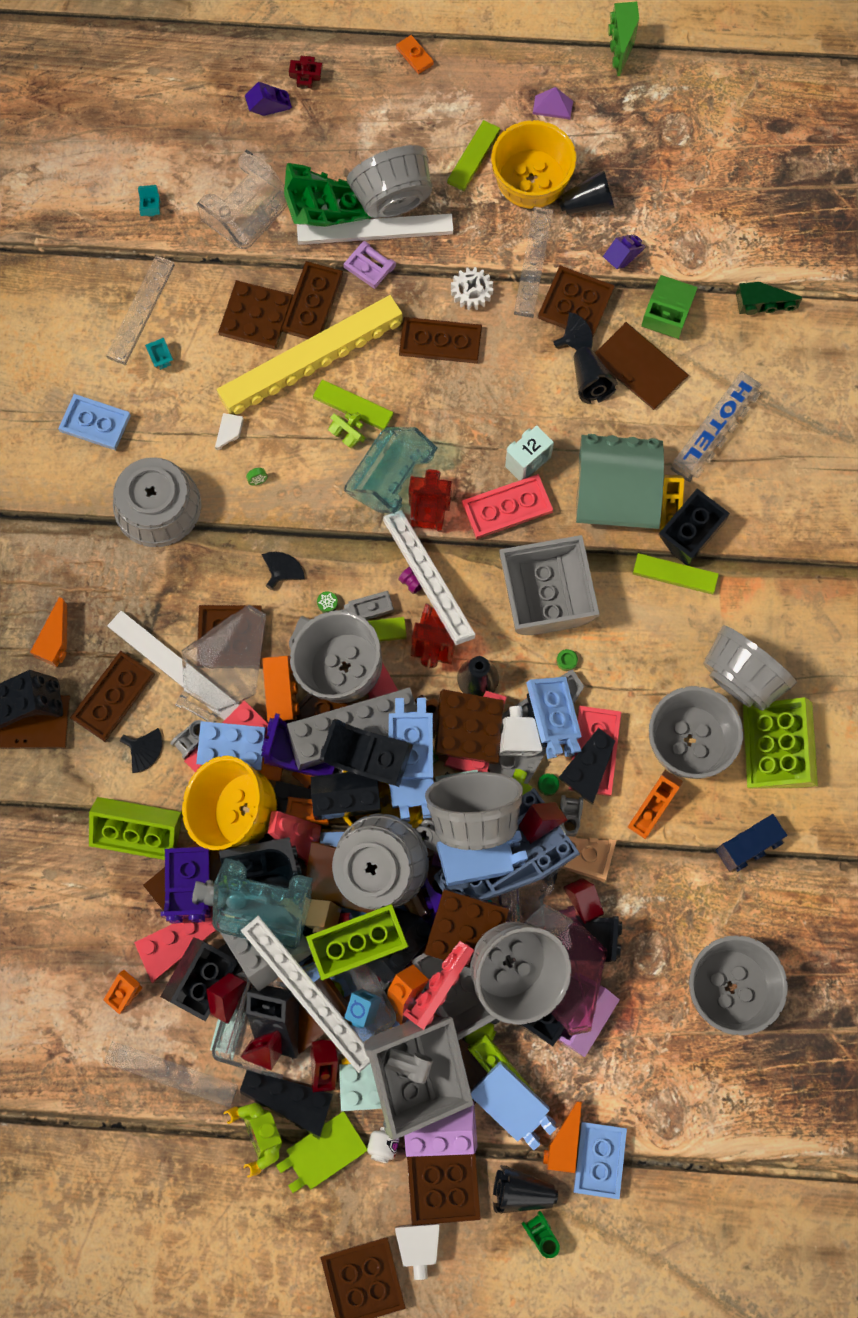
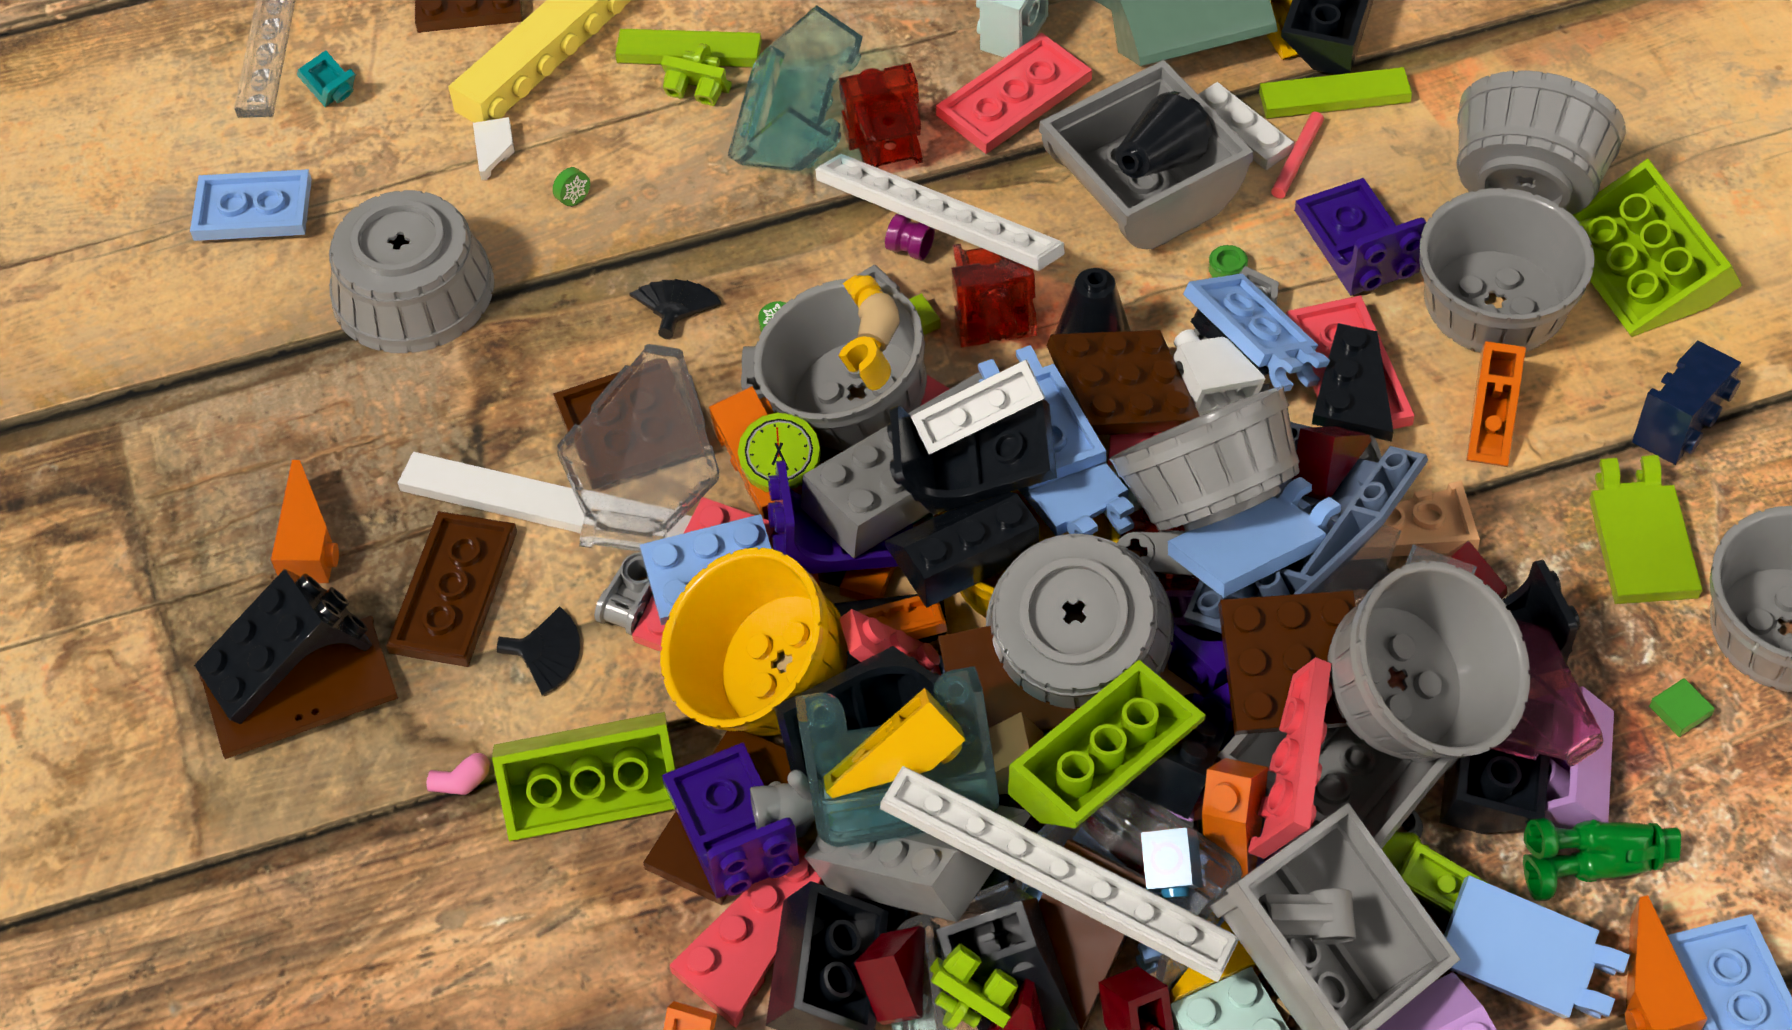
camera: 20 degrees left, 20 degrees down
(80, 805) = (462, 778): none -> bright pink arm
(249, 1029) = (955, 978): none -> lime hips
(265, 901) = (913, 737): none -> yellow slope
(285, 698) = (778, 439): none -> lime tile
(355, 656) = (877, 326): none -> piece
(376, 735) = (977, 406): none -> white plate
(557, 585) = (1165, 136): none -> black cone
(572, 1067) = (1603, 852): none -> green piece
(616, 575) = (1260, 135): none -> white plate
(636, 606) = (1297, 155): none -> coral bar
(639, 673) = (1361, 236): none -> dark purple bracket
(656, 1007) = (1681, 707): none -> bright green tile
(689, 907) = (1643, 536): none -> lime tile

